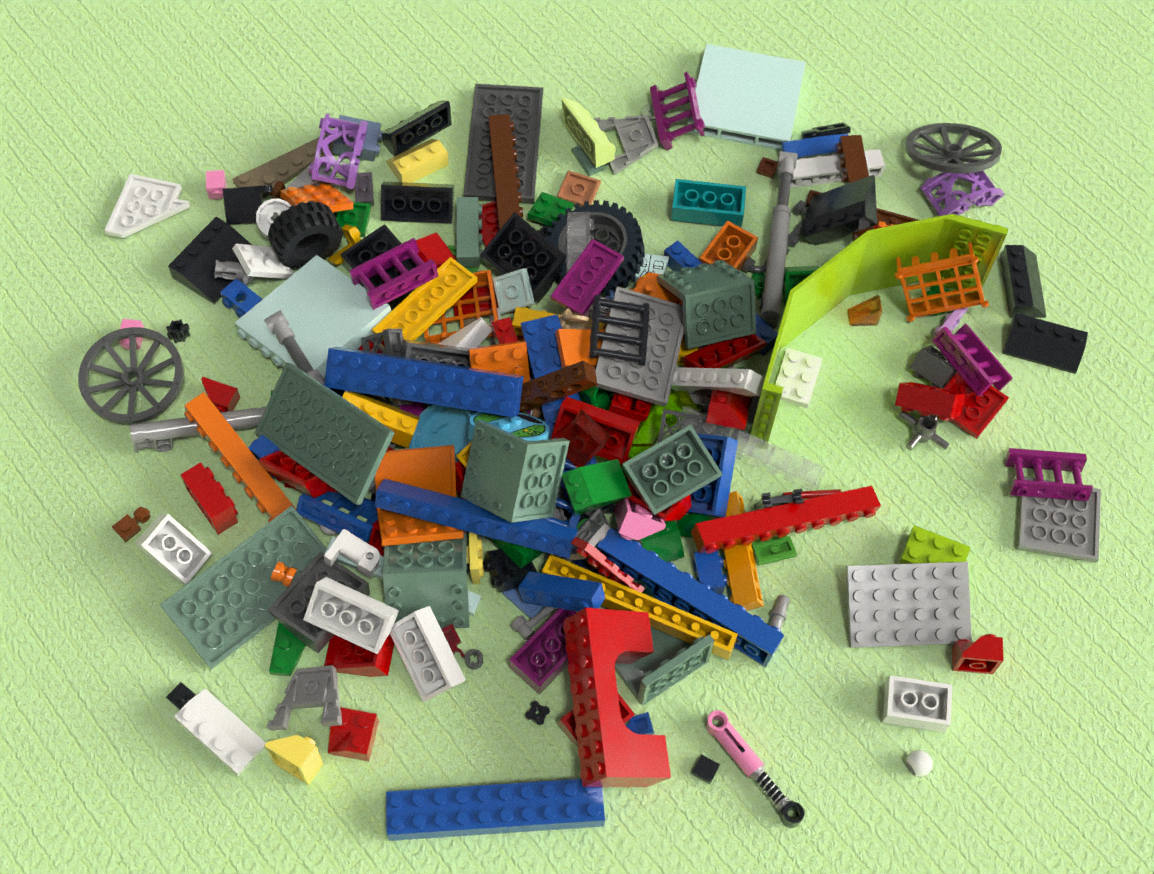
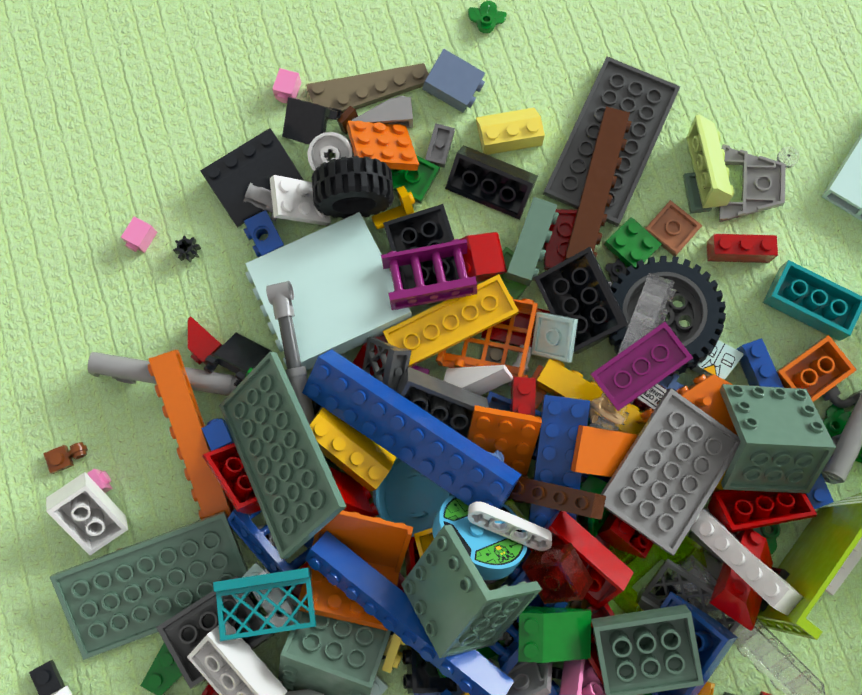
camera: 25 degrees right, 15 degrees up
(129, 373) = (115, 284): dark grey wheel -> none
(144, 204) = (204, 84): white wing -> none
(210, 497) = (147, 464): red brick -> none
(253, 393) = (237, 356): none -> black flag
(283, 574) = (184, 585): orange wheel -> none
(343, 533) = (263, 582): none -> teal fence
(355, 131) = (452, 79): medium lavender fence -> none
(365, 85) = (486, 16): none -> green plate
(417, 128) = (524, 90): black slope -> none
(528, 416) = (486, 515): none -> white beam
(638, 185) = (742, 248): none -> red brick
(642, 325) = (624, 445): black bar -> none
(661, 109) = (804, 160): magenta fence -> none

